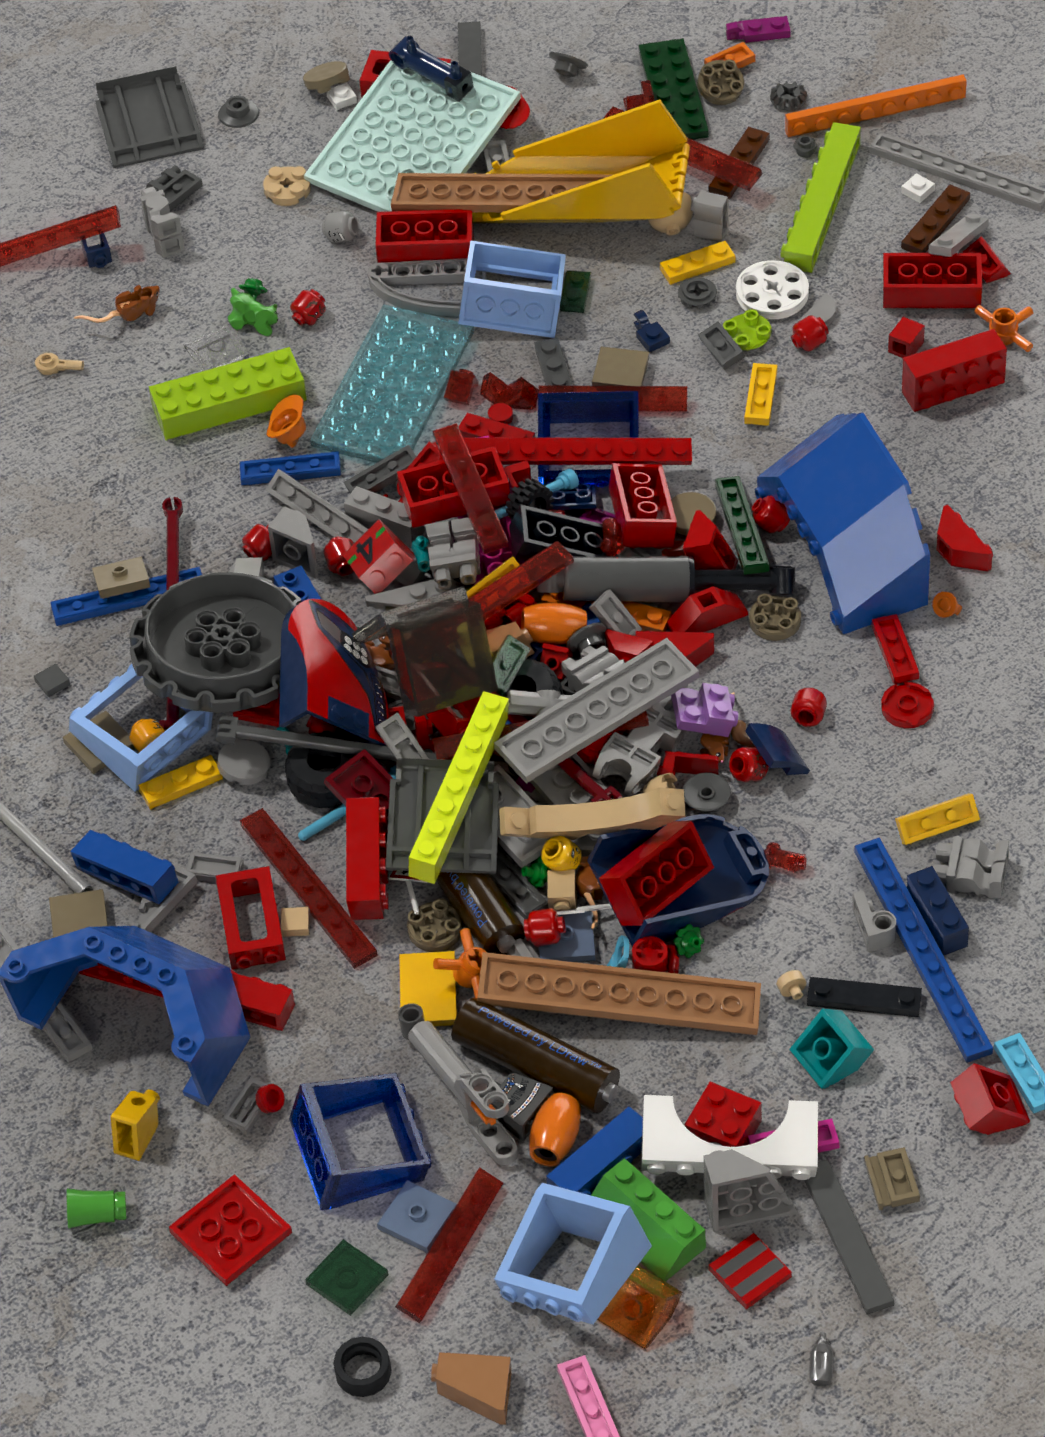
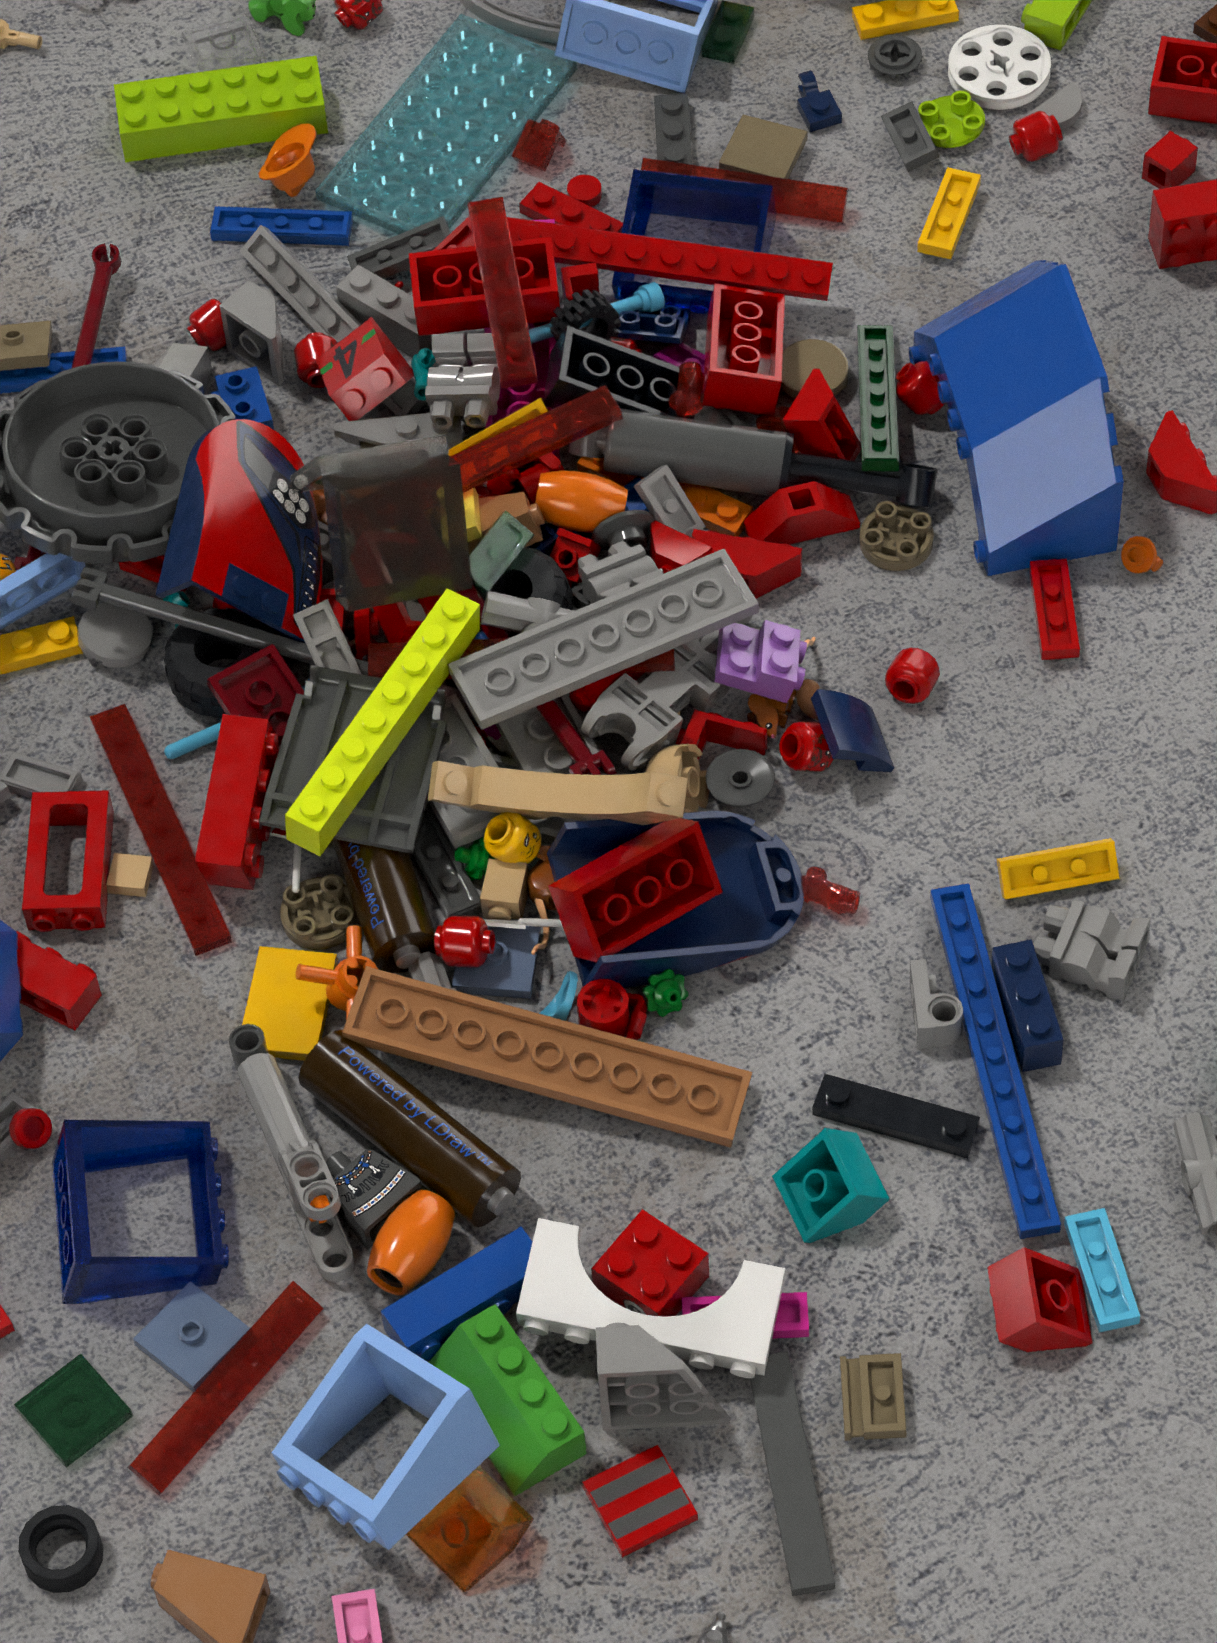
camera: 10 degrees right, 5 degrees up
(517, 395) = (610, 167): clear red slope -> none
(791, 984) = (796, 1081): tan tile -> none
(907, 705) = (1054, 693): red tile -> none

